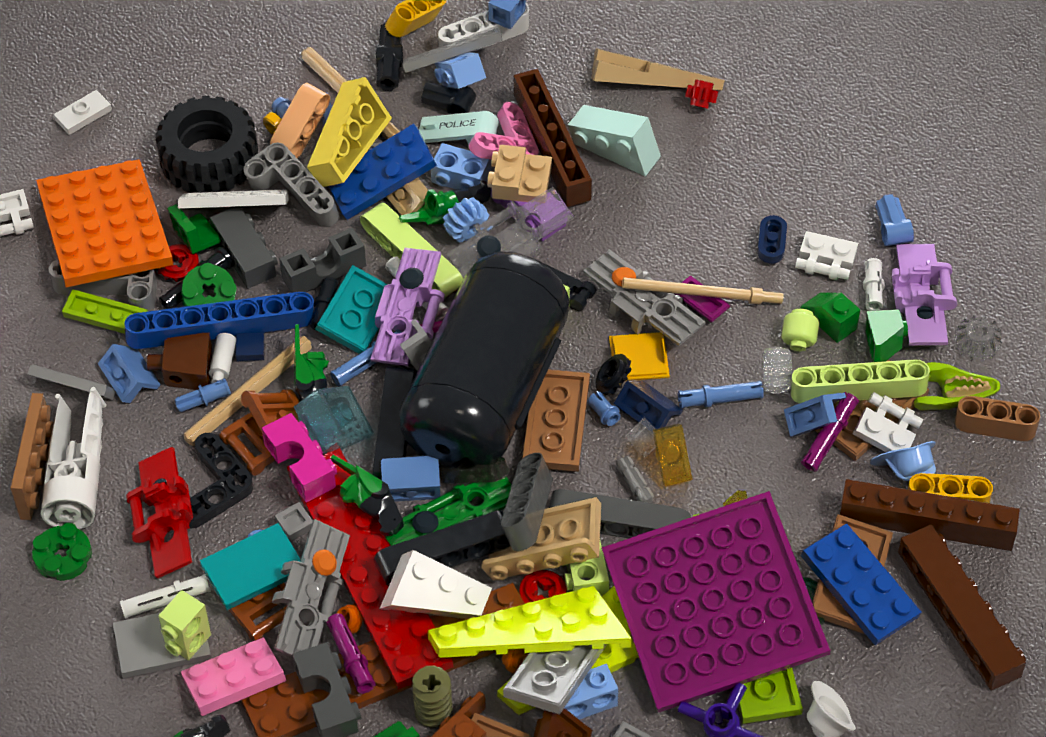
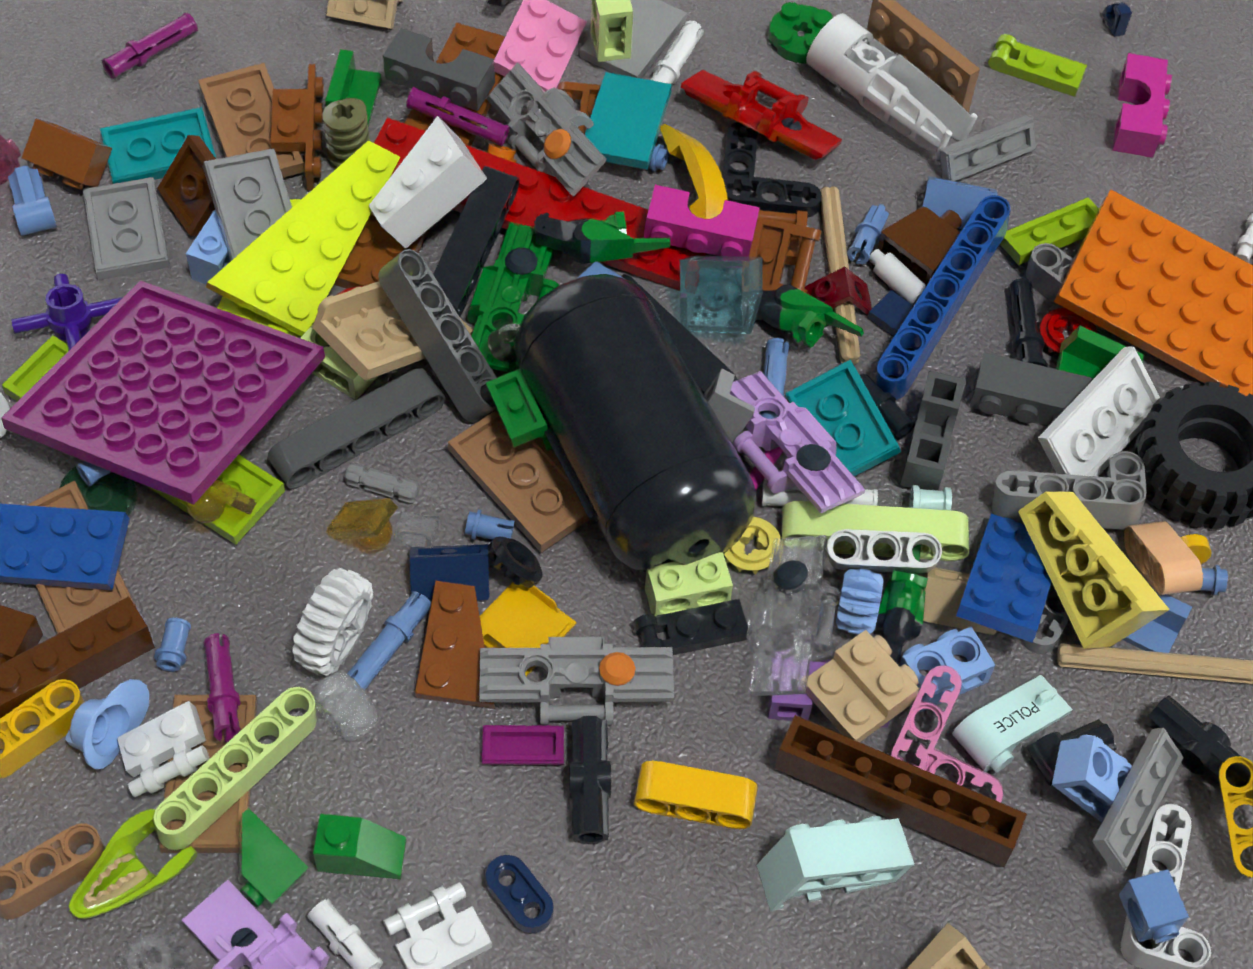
camera: 130 degrees right, 5 degrees up
(207, 276) = (999, 301): green plate -> none
(235, 525) = (702, 169): none -> yellow slope
(268, 375) = (840, 288): none -> dark red bracket
(294, 521) = (642, 190): light grey plate -> none
(372, 244) = (930, 498): none -> light aqua bush
(431, 219) = (901, 542): none -> white beam
(530, 429) = (518, 409): none -> green panel
(644, 213) = (696, 794): none -> yellow beam
(687, 255) = (590, 780): none -> black piece
(688, 365) = (452, 648): none -> dark orange wing
(743, 409) = (332, 621): none -> white gear
(753, 296) = (466, 797): tan bar -> none
(800, 329) = (371, 792): yellowish green head -> none
(812, 414) = (252, 685): medium blue panel -> none
(833, 481) = (171, 653): none -> medium blue pin

